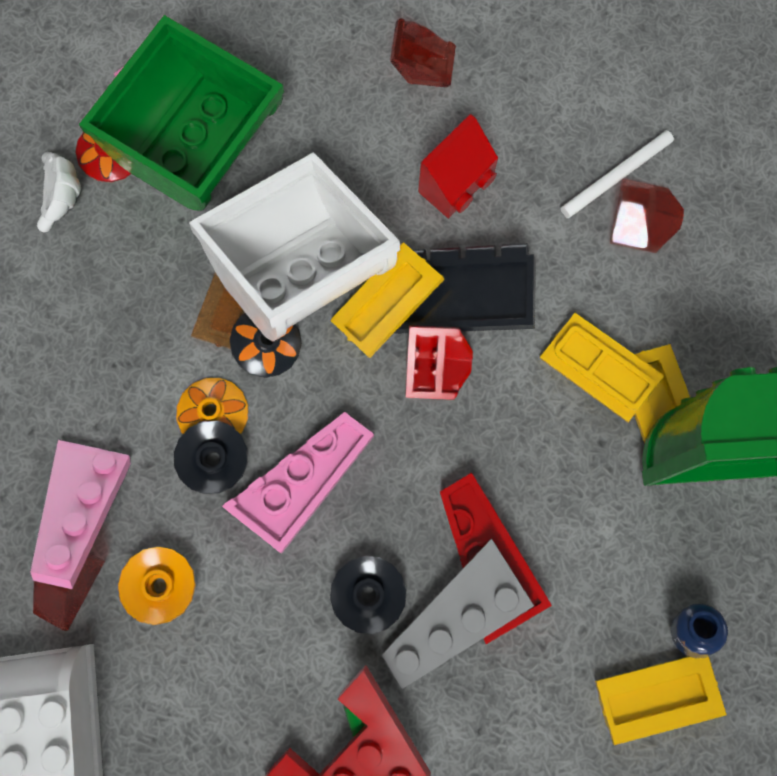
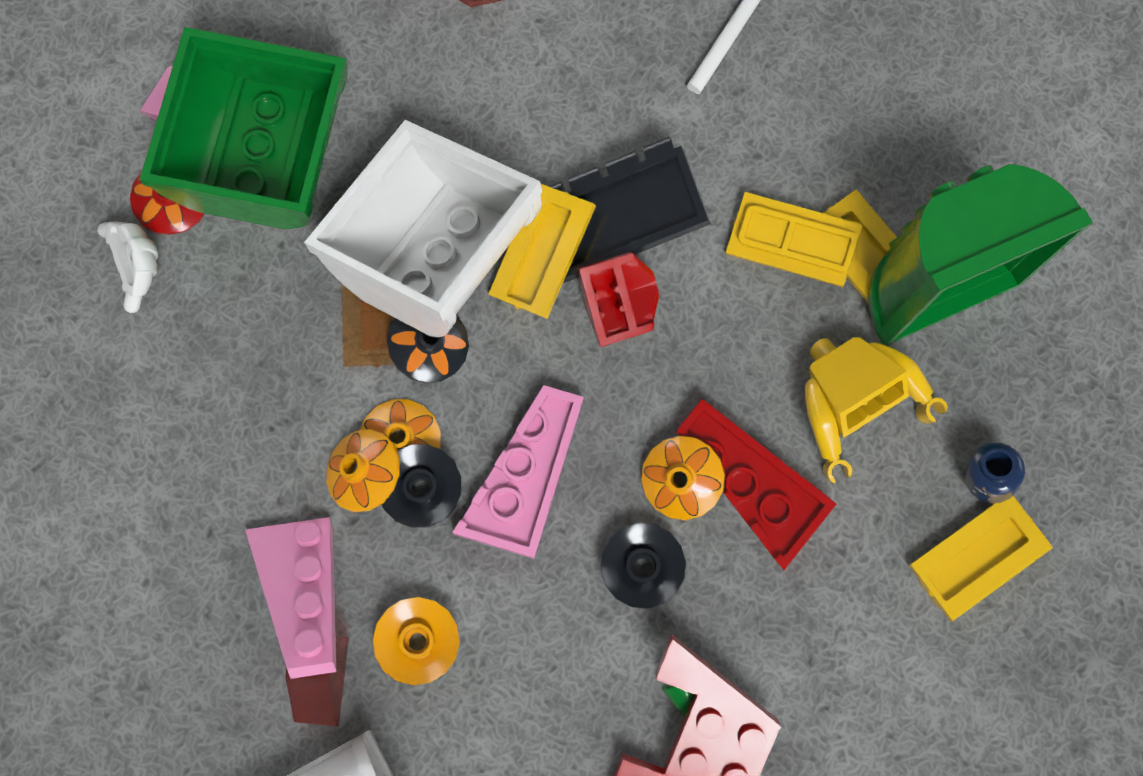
camera: 20 degrees left, 0 degrees up
(170, 427) = (375, 473): none -> light orange dish
(447, 527) = (702, 470): none -> light orange dish
(458, 168) = (564, 83): red slope -> none
(465, 612) = (750, 545): light grey wing -> none
(605, 512) = (856, 386): none -> yellow torso
(645, 216) = (780, 63): clear red slope -> none

